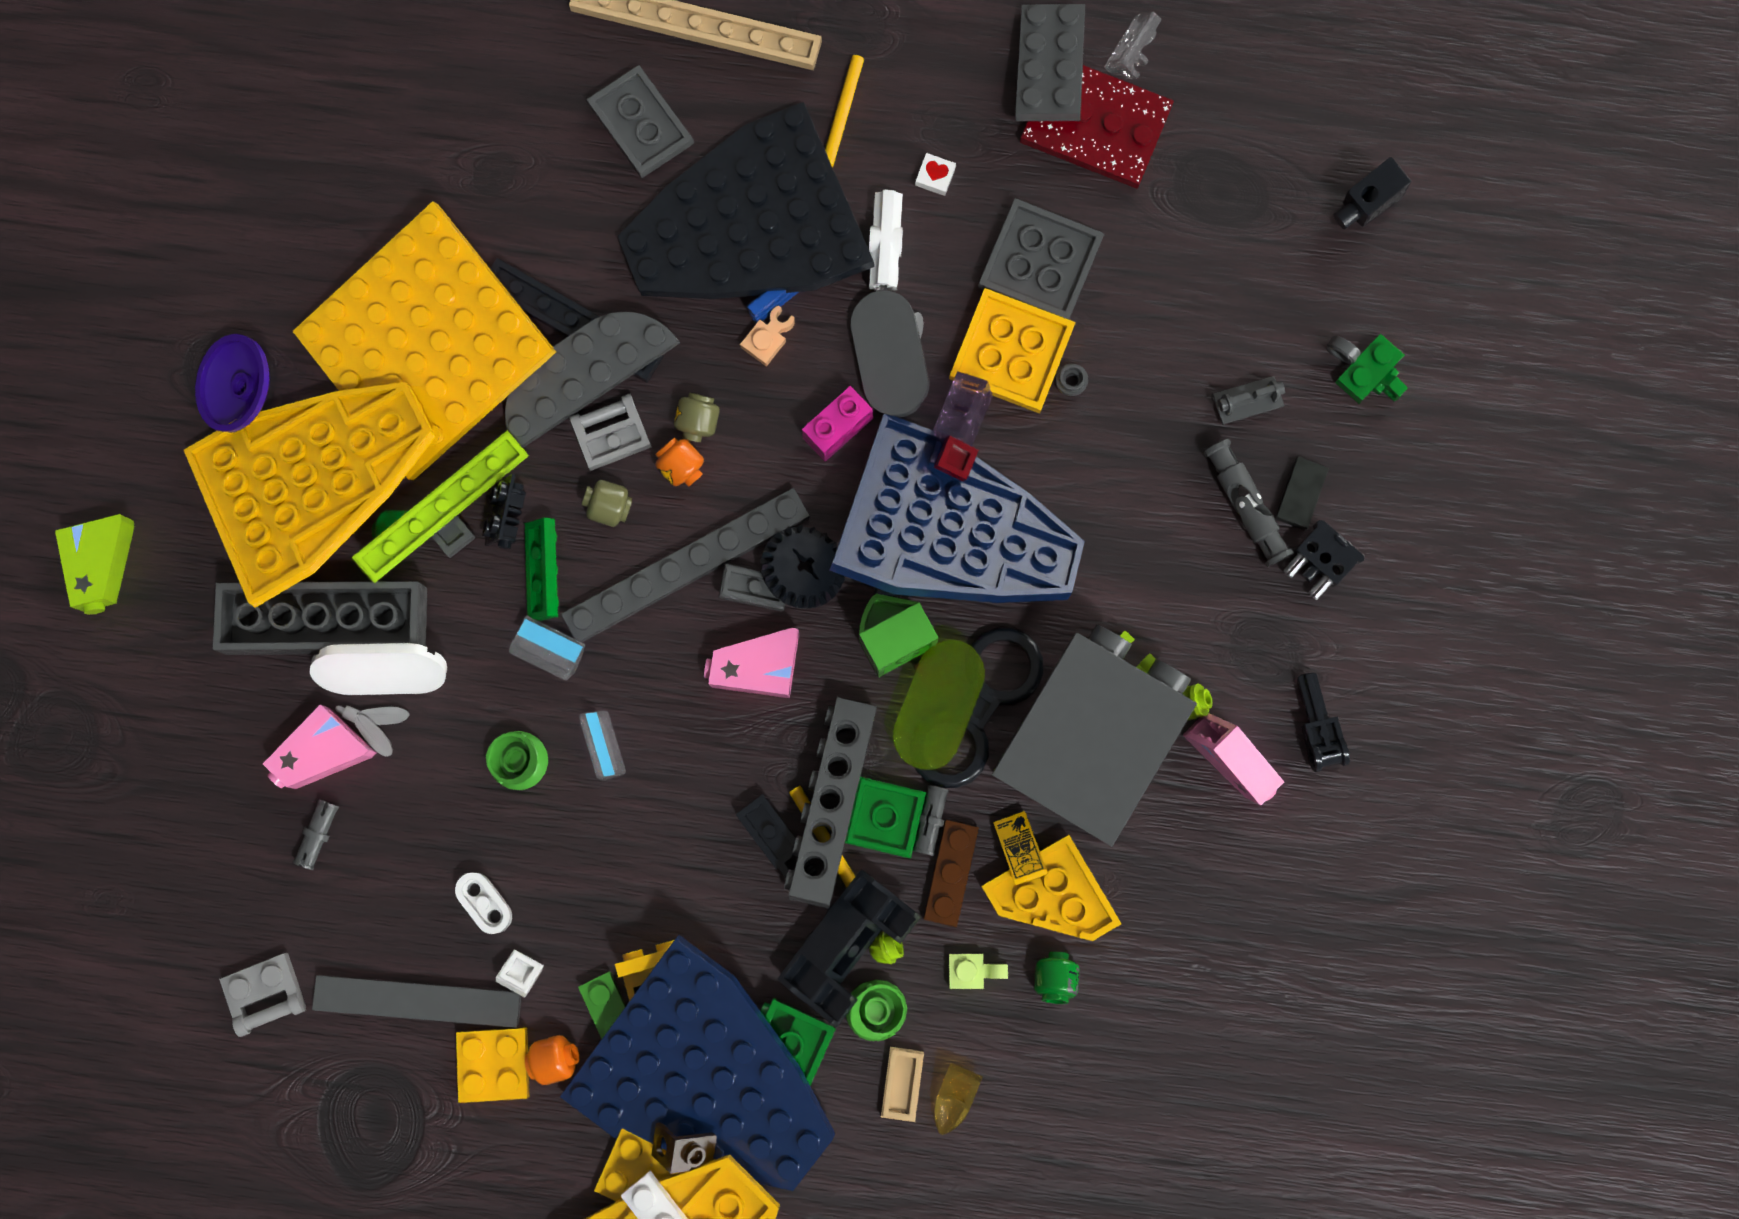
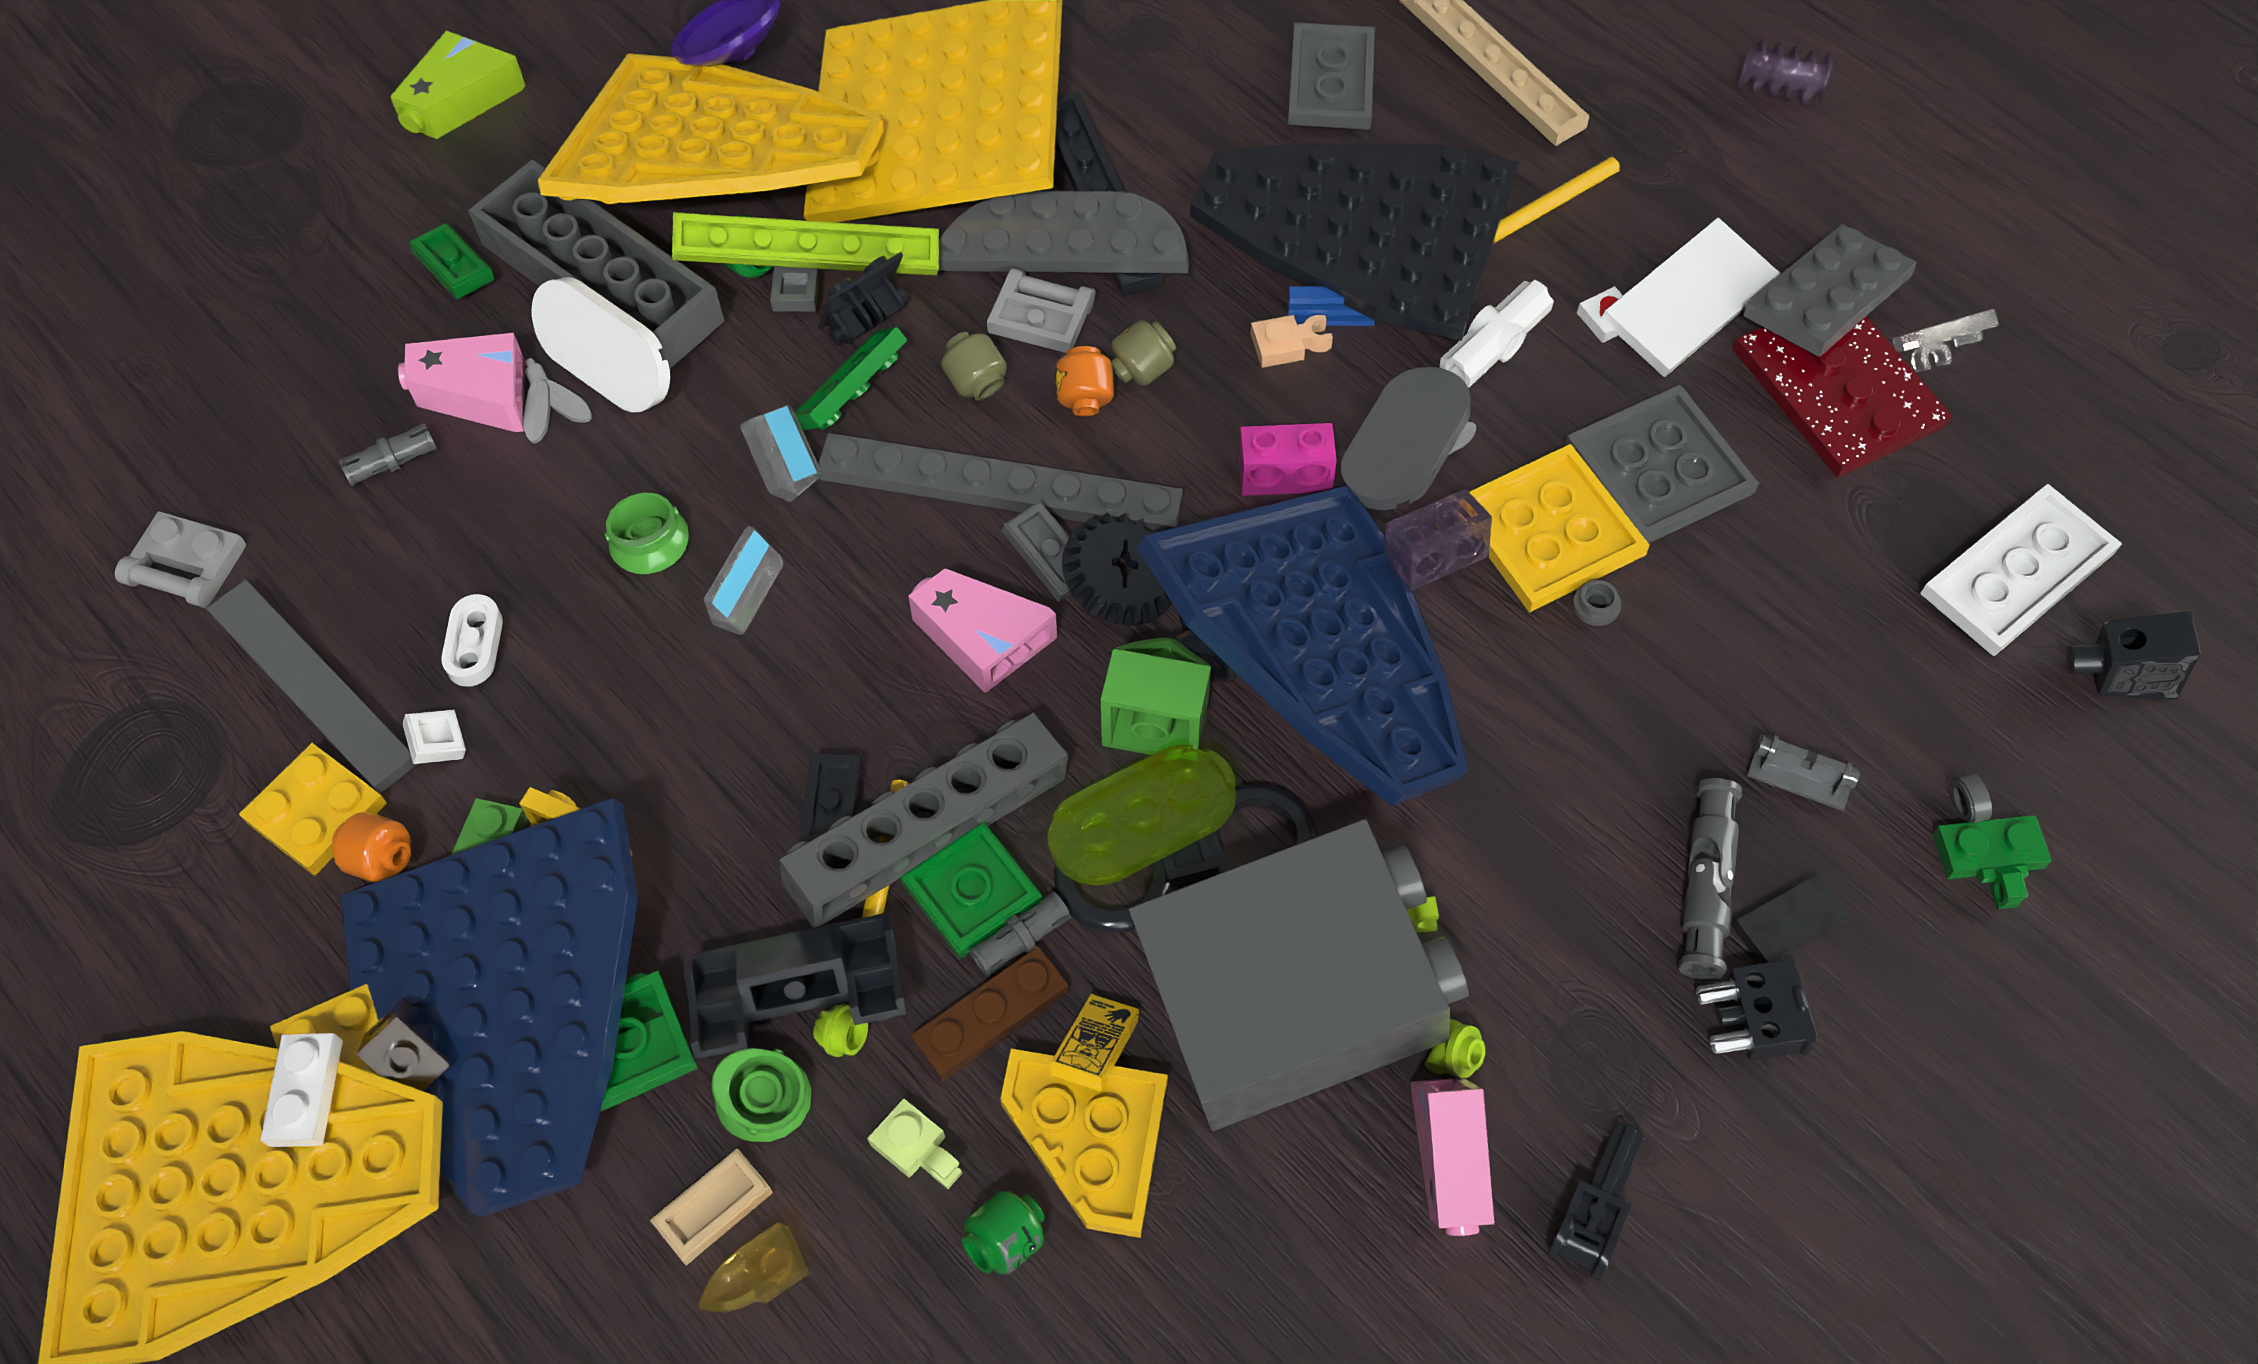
camera: 40 degrees right, 20 degrees down
(222, 682) = (451, 261): none -> green plate
(956, 458) = (1388, 571): dark red plate -> none
(974, 126) = (1690, 297): none -> white tile
(1276, 179) = (2020, 569): none -> white plate

